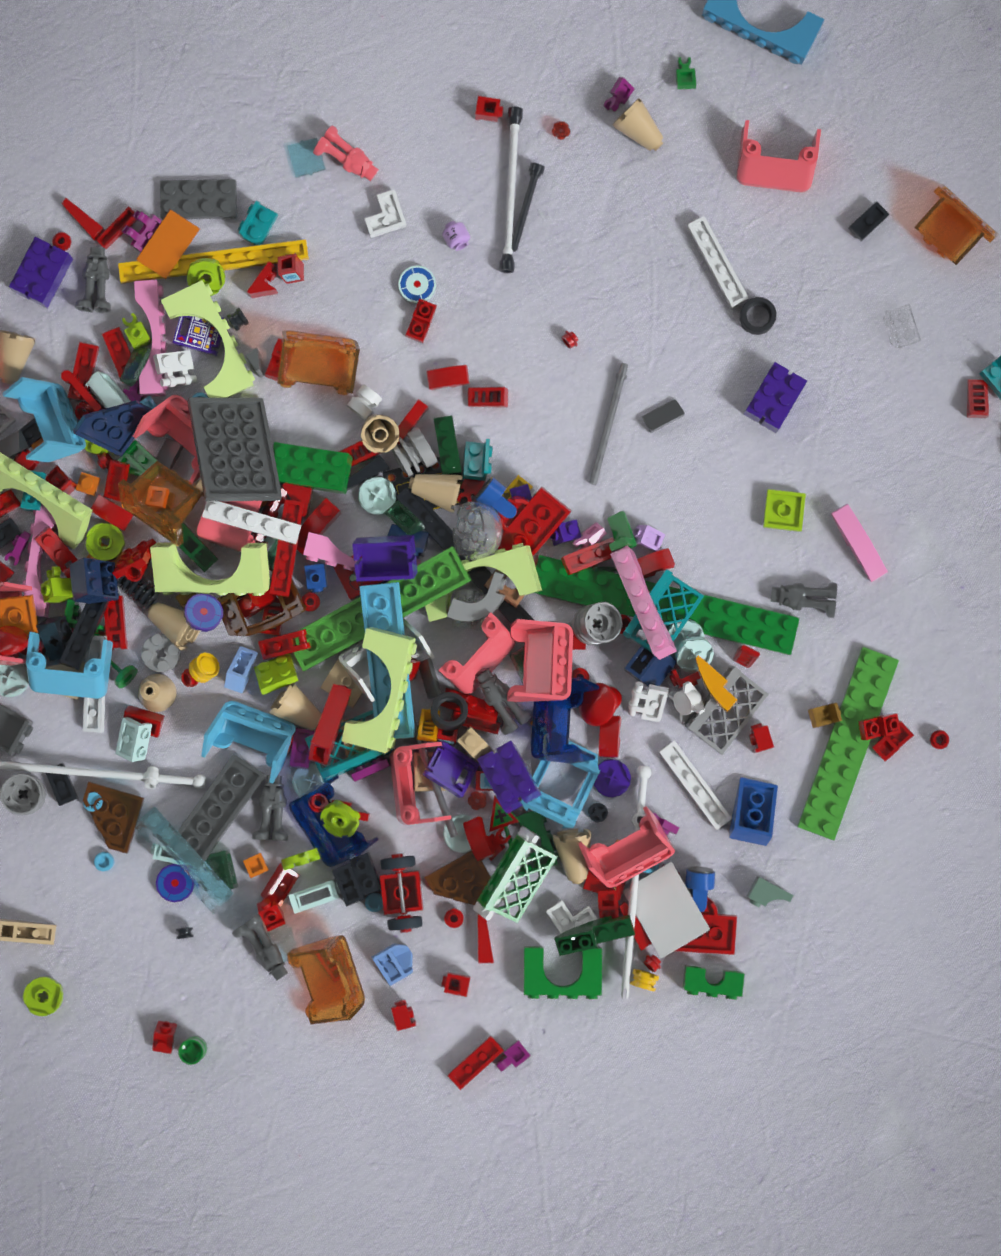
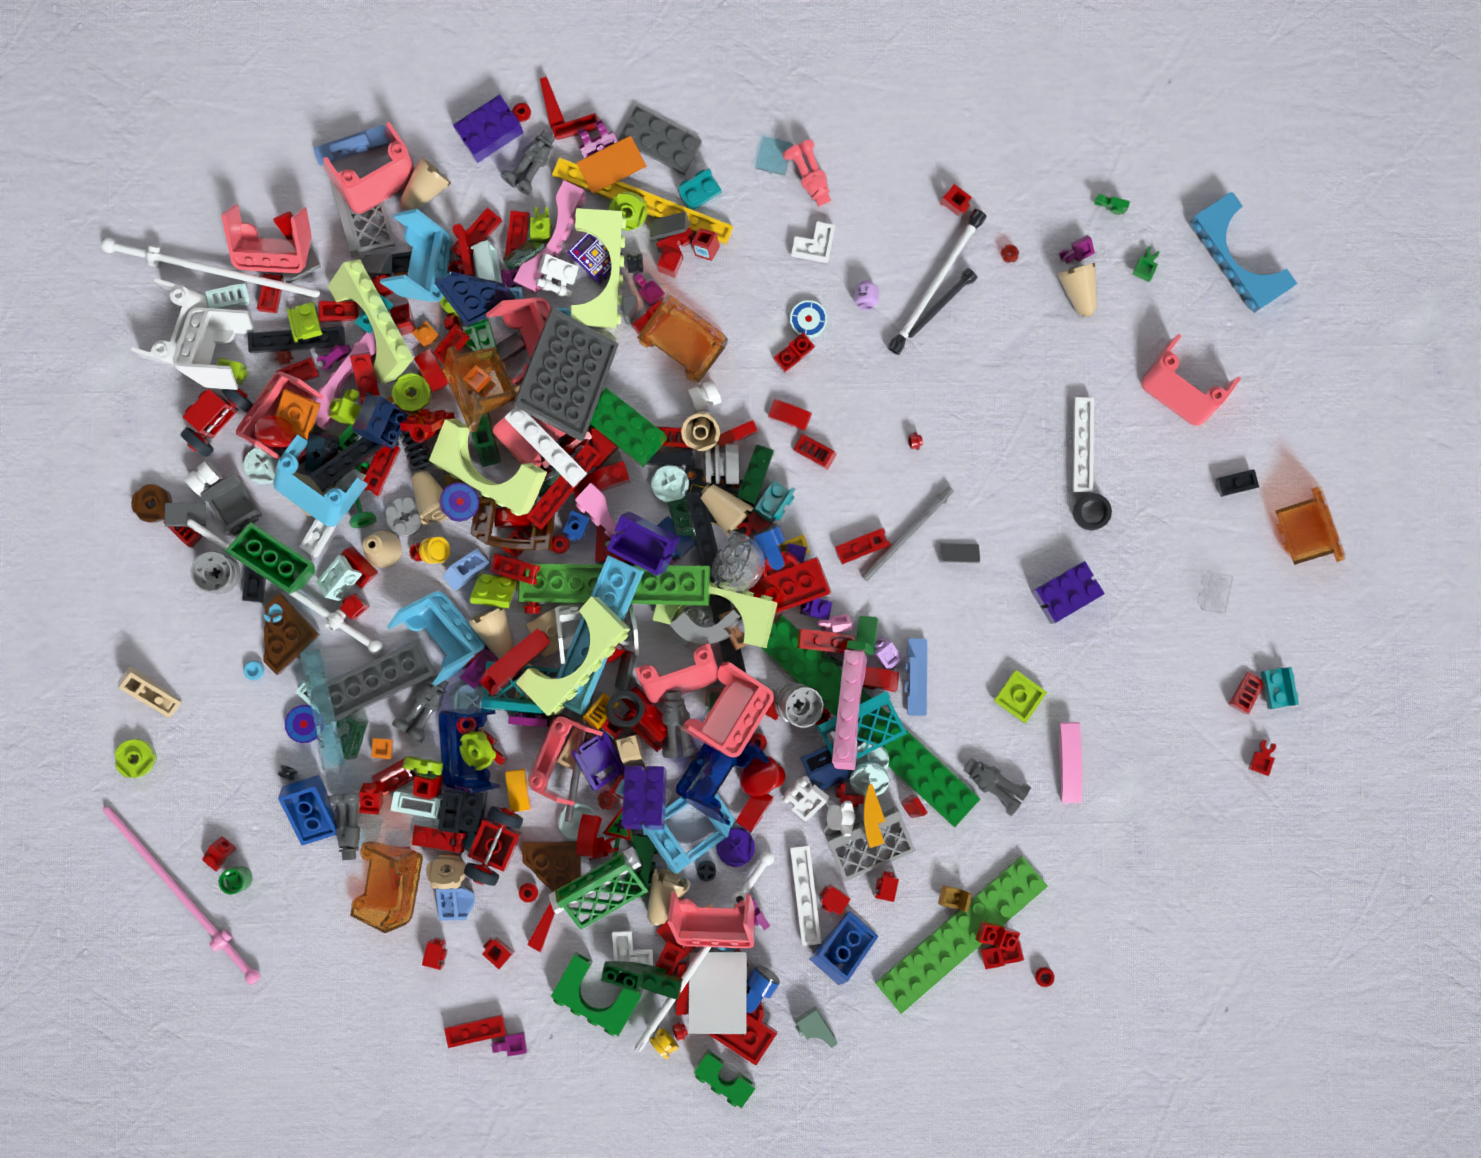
camera: 25 degrees right, 0 degrees up
(66, 753) = (271, 559): none -> green slope
(161, 756) = (354, 606): none -> red brick
(208, 1109) = (220, 939): none -> bright pink bar
(222, 954) = (308, 810): none -> blue slope
(249, 270) = (669, 225): none -> dark grey slope
(264, 337) = (649, 291): none -> magenta plate
(268, 302) = (669, 263): none -> red brick
(314, 873) = (427, 785): none -> red brick
(317, 670) = (532, 608): none -> red plate
(349, 915) = (432, 838): none -> red plate
(372, 948) = (446, 880): none -> tan plate
(394, 834) = (518, 790): none -> light orange slope
(574, 457) = (861, 546): none -> red plate
(628, 37) = (1115, 205): none -> green plate
(688, 548) = (916, 677): none -> medium blue bracket
(721, 775) = (833, 899): none -> red brick

